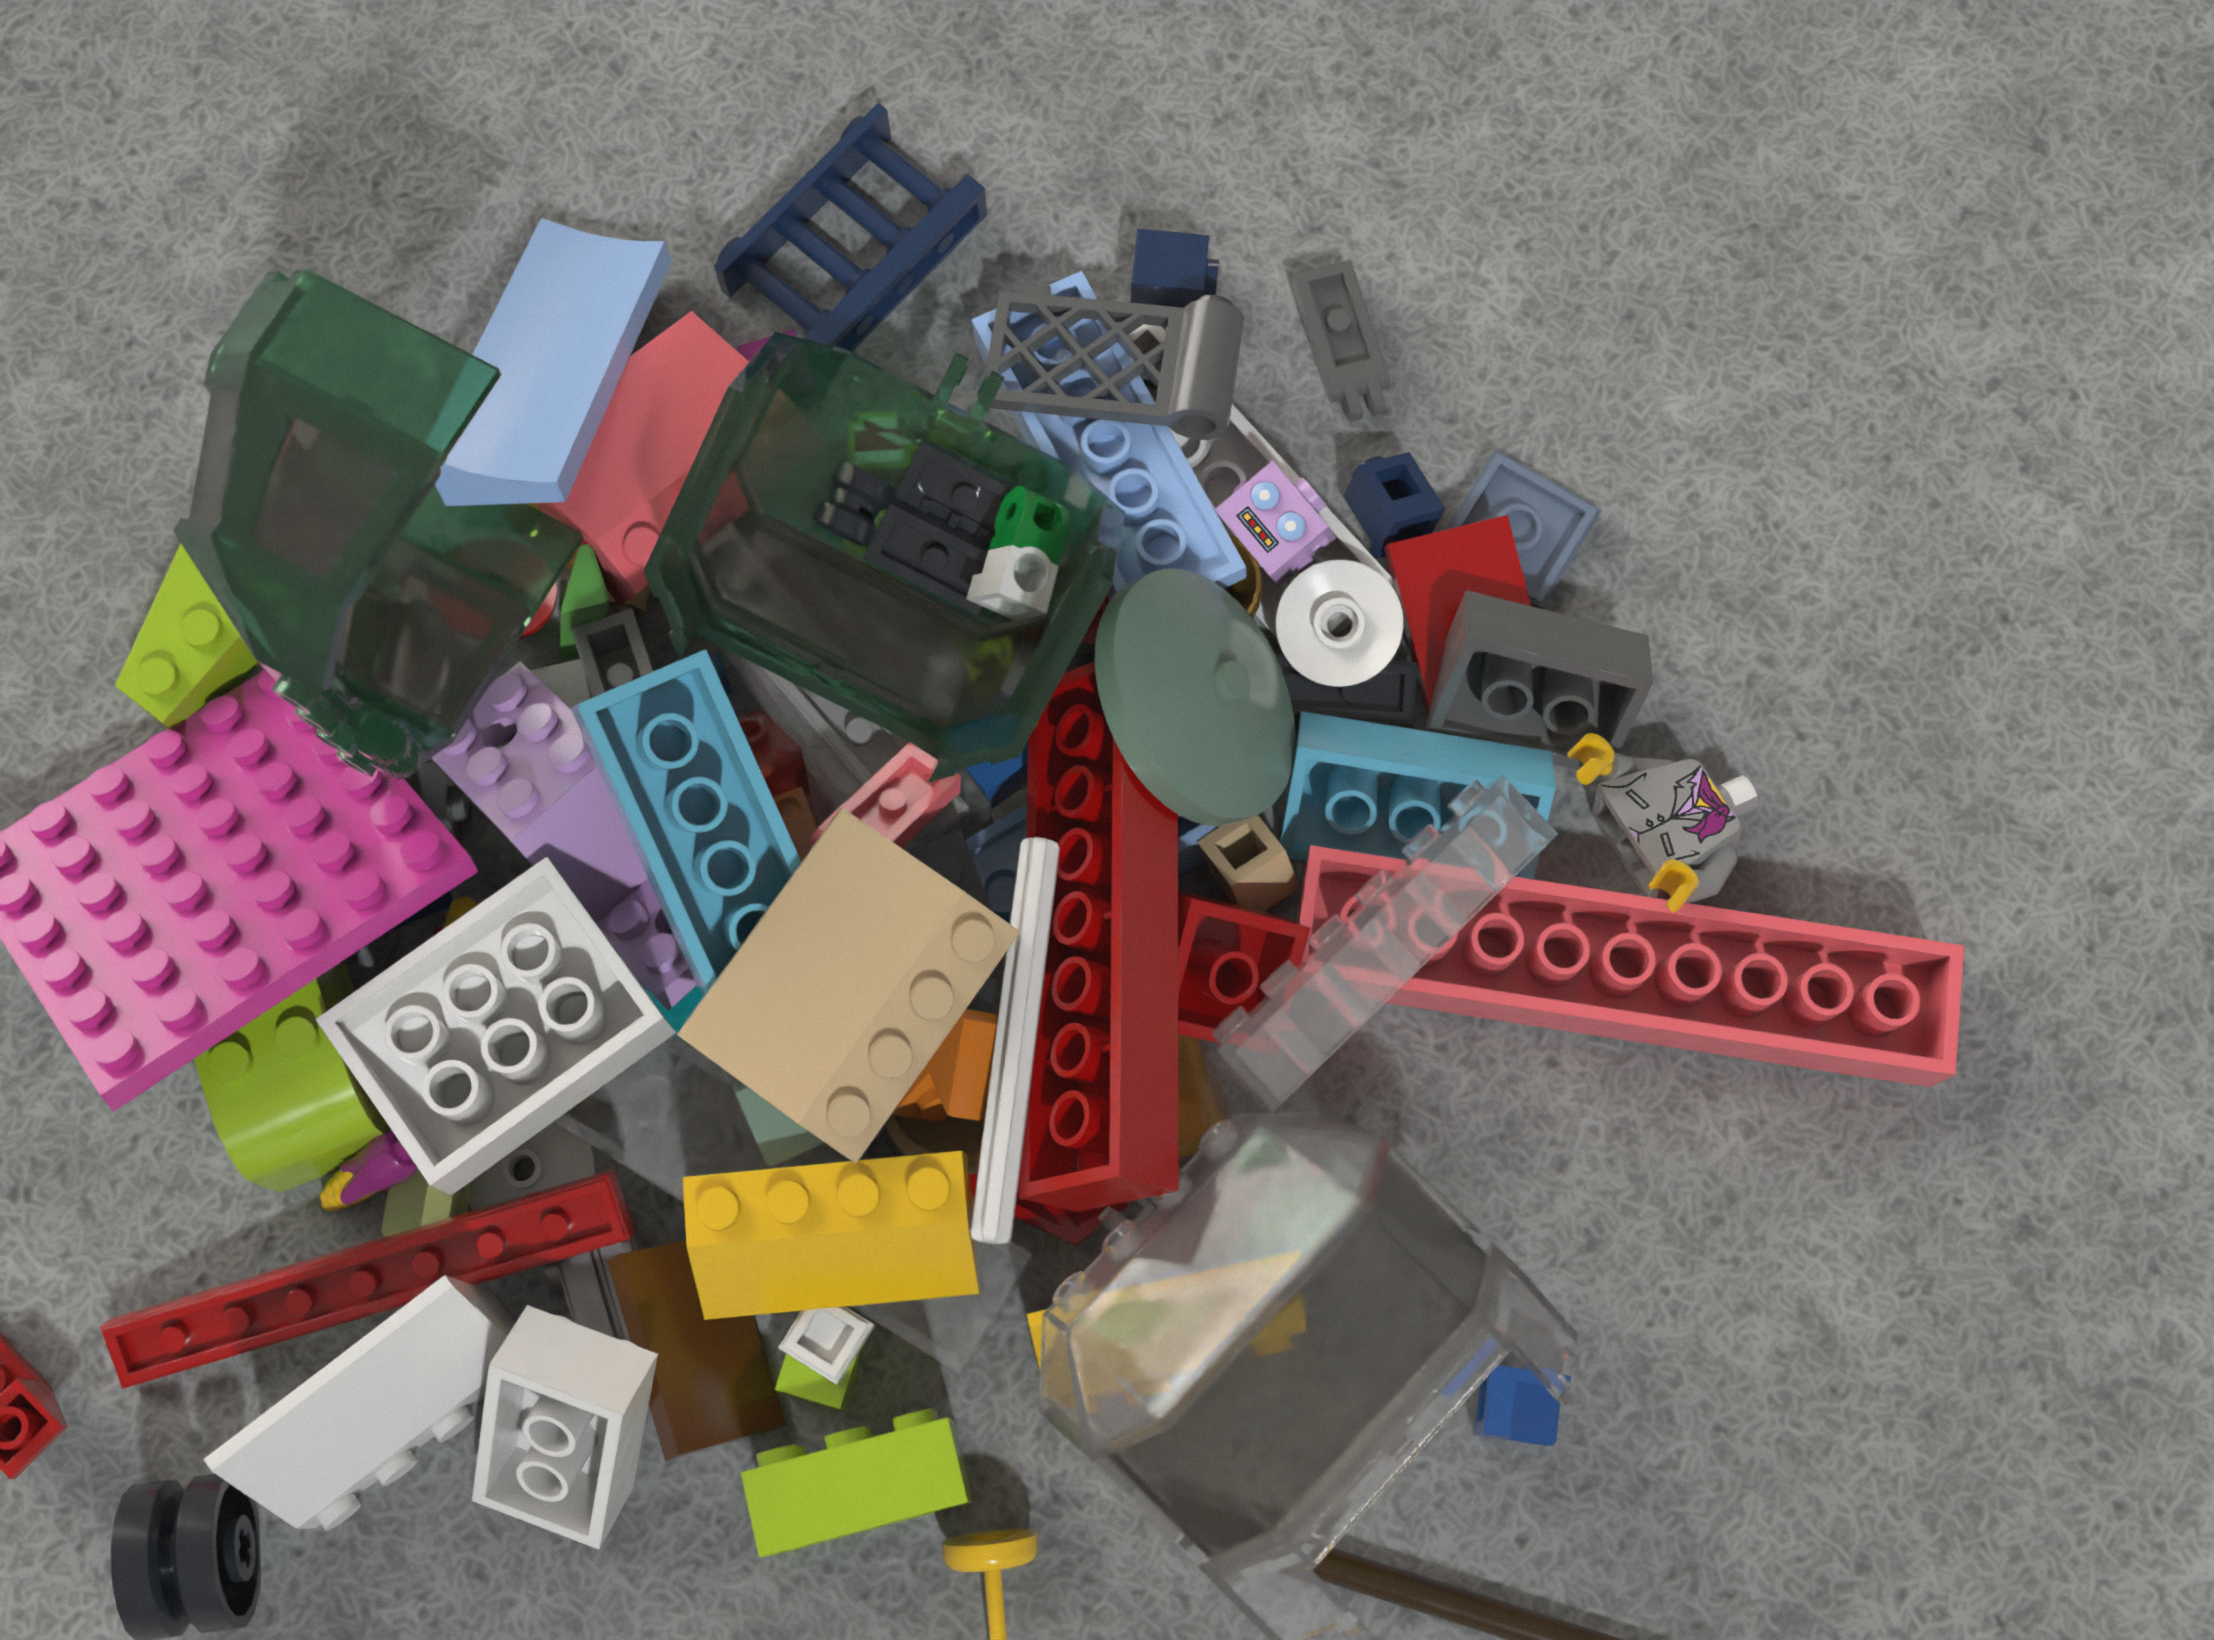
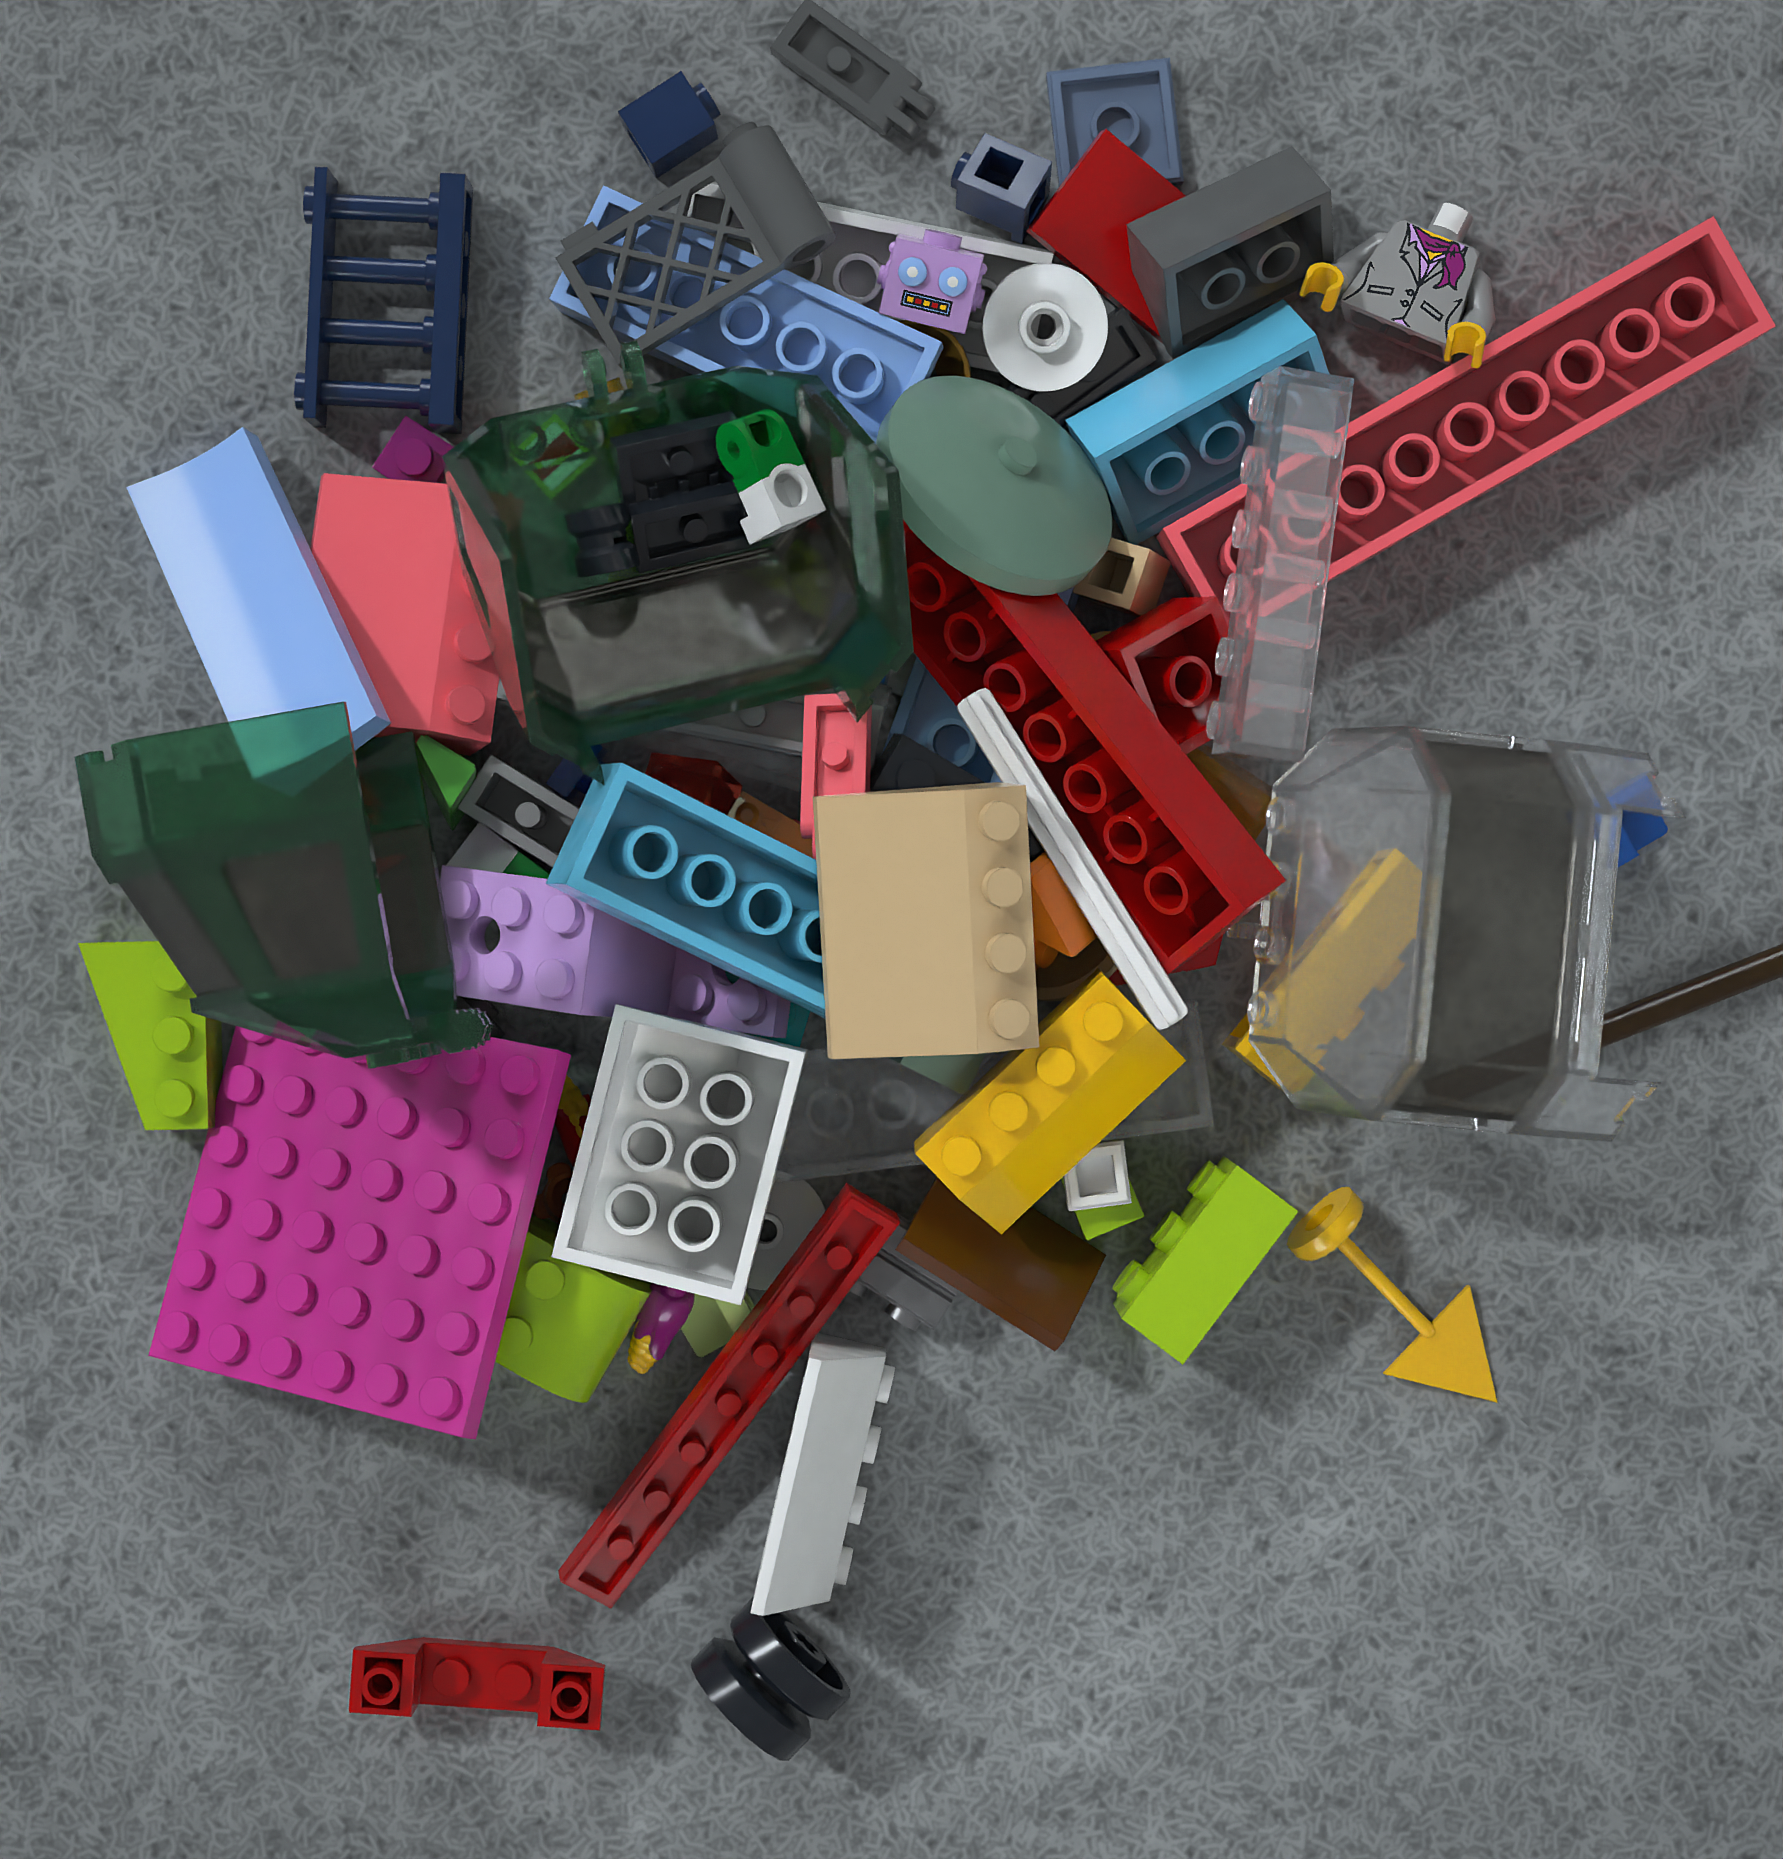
camera: 35 degrees left, 15 degrees up
(562, 1426) = (963, 1385): white brick -> none

